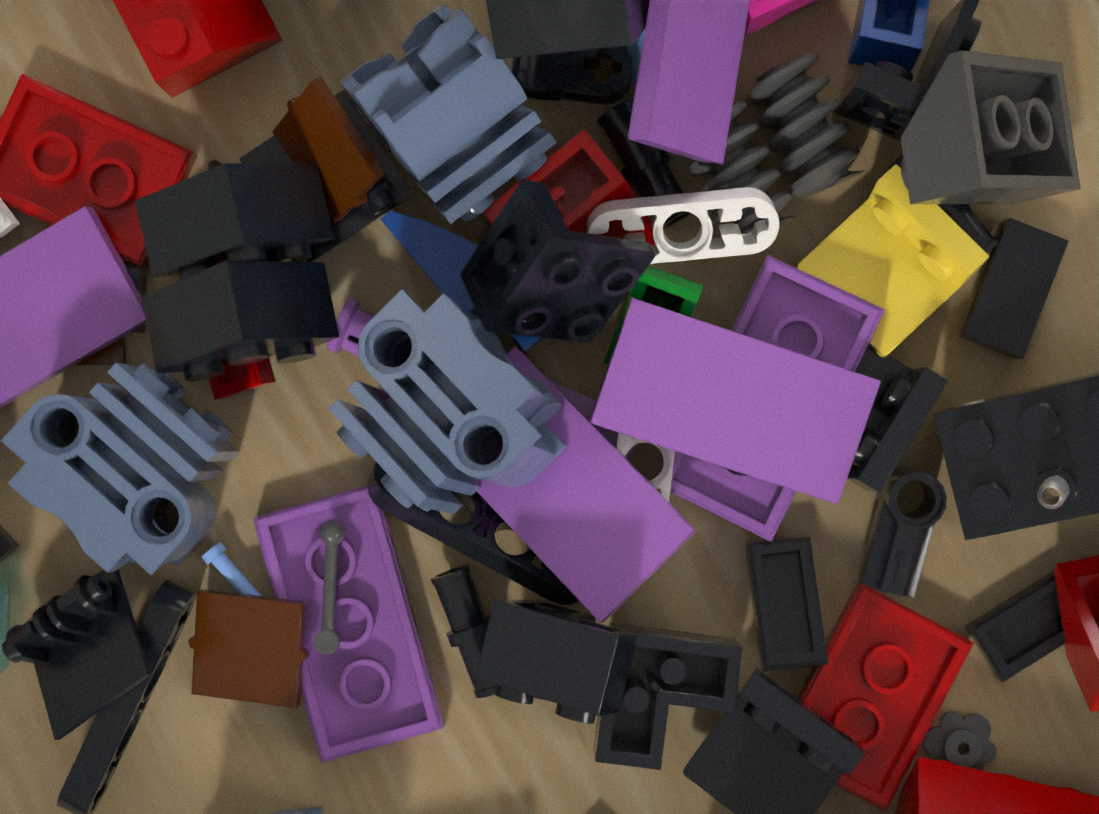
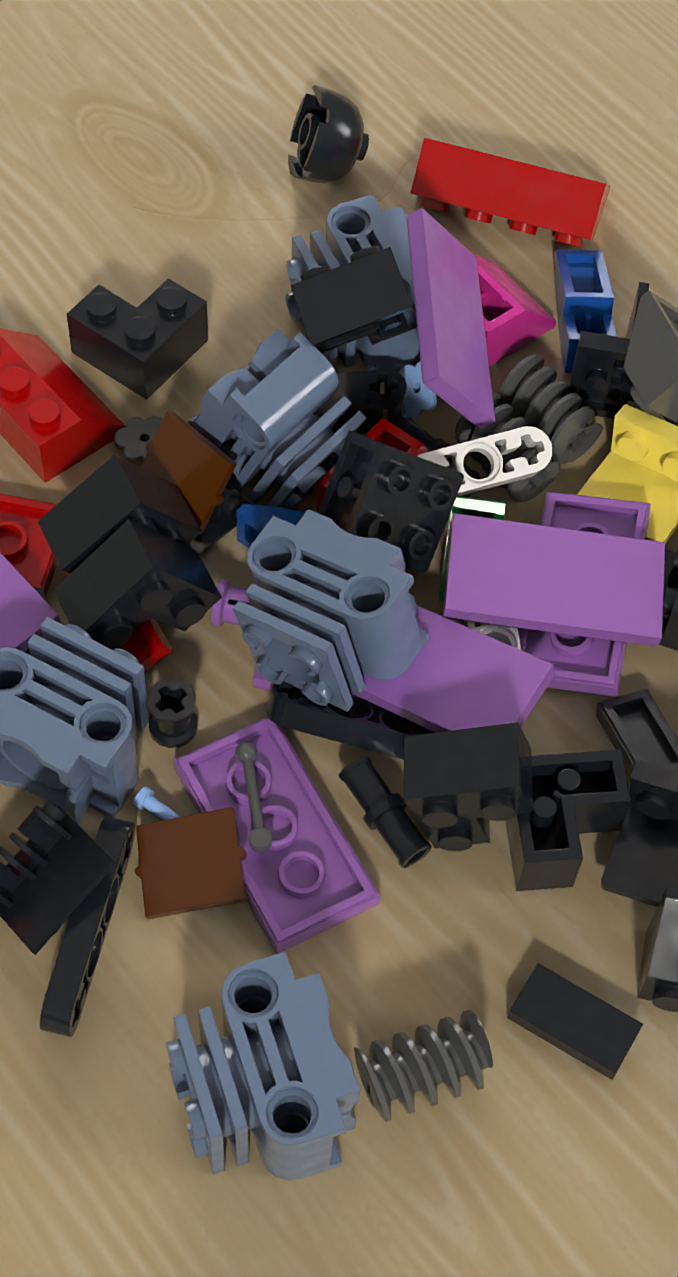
camera: 15 degrees left, 30 degrees down
(242, 455) = (172, 713): none -> black bush
(283, 56) = (136, 436): none -> dark grey plant

